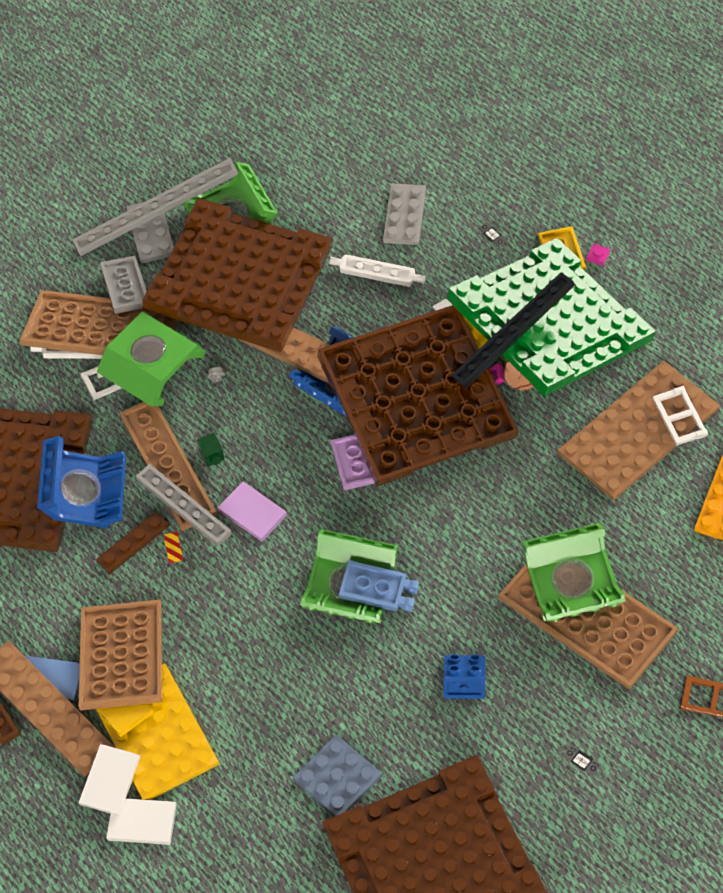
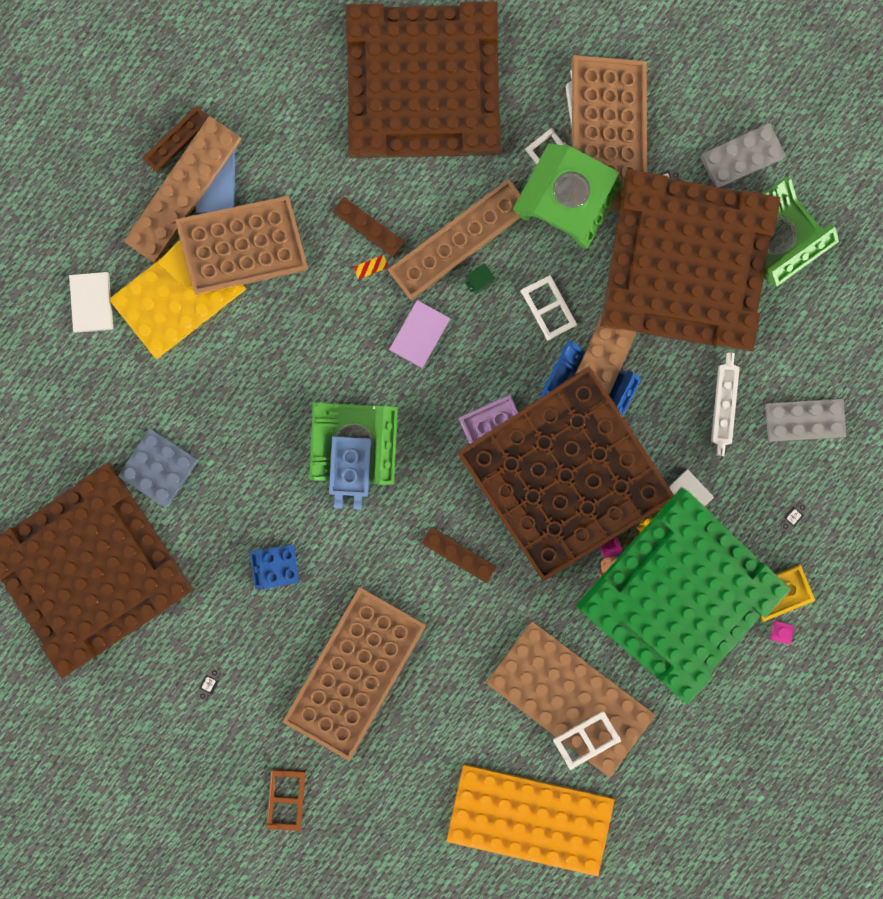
camera: 75 degrees right, 30 degrees up
(81, 486) = (414, 160): blue panel -> none
(109, 780) = (118, 265): white tile -> none
(124, 284) = (664, 145): light grey plate -> none
(155, 206) = (767, 155): light grey plate -> none
(183, 505) = (408, 266): light grey plate -> none
(216, 374) = (570, 265): light grey plate -> none
(256, 408) = (560, 301): none -> white window
(481, 506) = (459, 555): none -> reddish brown plate
(513, 330) = (644, 567): black plate -> none
(571, 572) = (381, 658): bright green panel -> none

